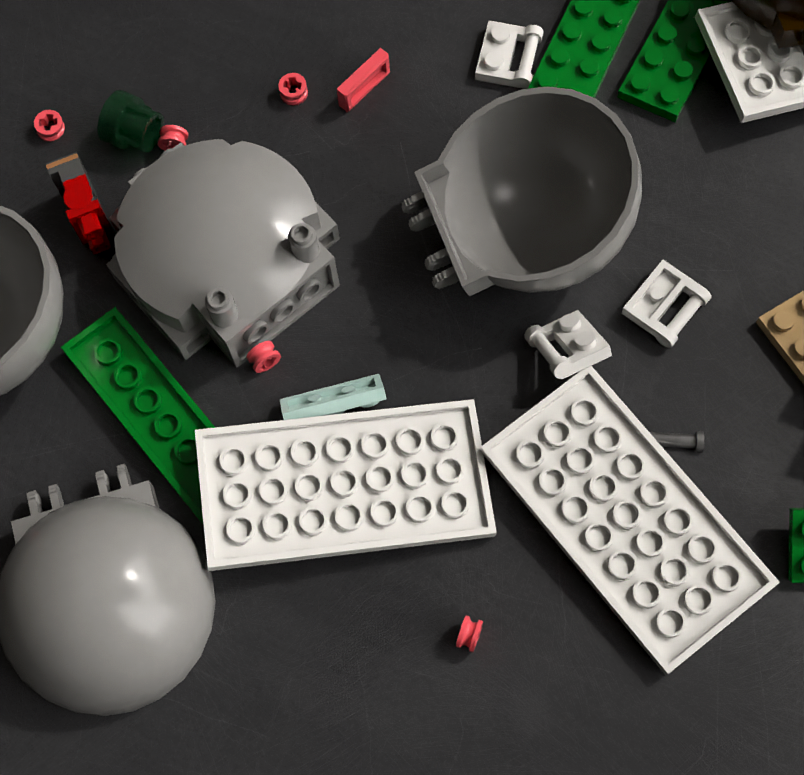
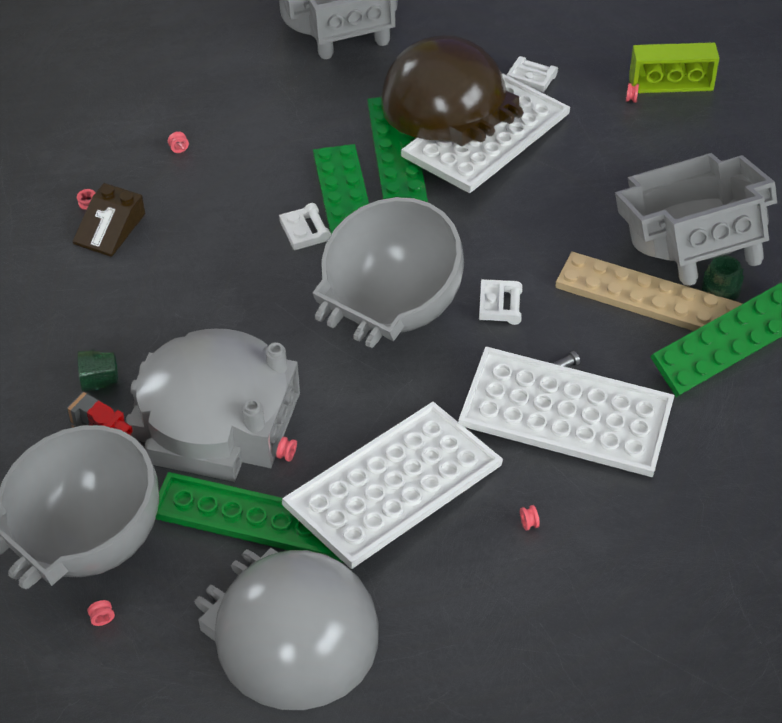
camera: 40 degrees left, 20 degrees down
(42, 119) = (32, 397): coral bush -> none
(171, 136) = (129, 367): coral bush -> none
(290, 80) = (183, 311): coral bush -> none
(335, 398) = (361, 435): light aqua plate -> none
(363, 80) = (228, 279): coral tile -> none
(577, 339) = (464, 344): white plate -> none

